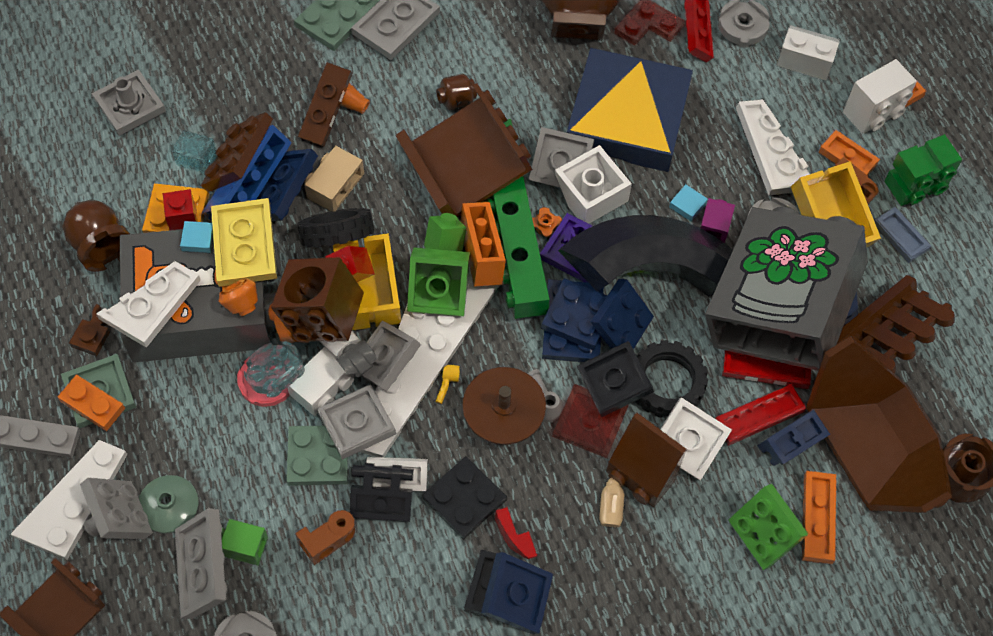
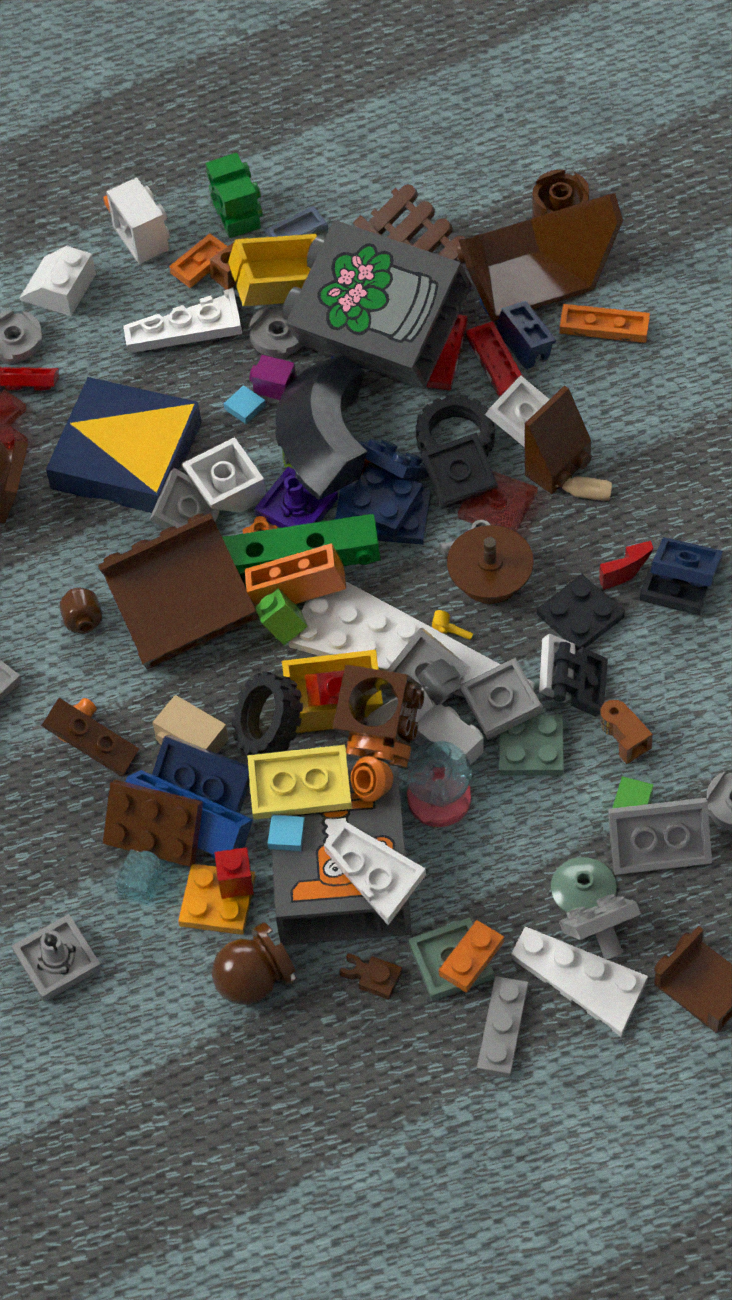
camera: 80 degrees left, 5 degrees down
(438, 281) = (338, 617): bright green slope -> none
(773, 525) = (605, 350): bright green plate -> none

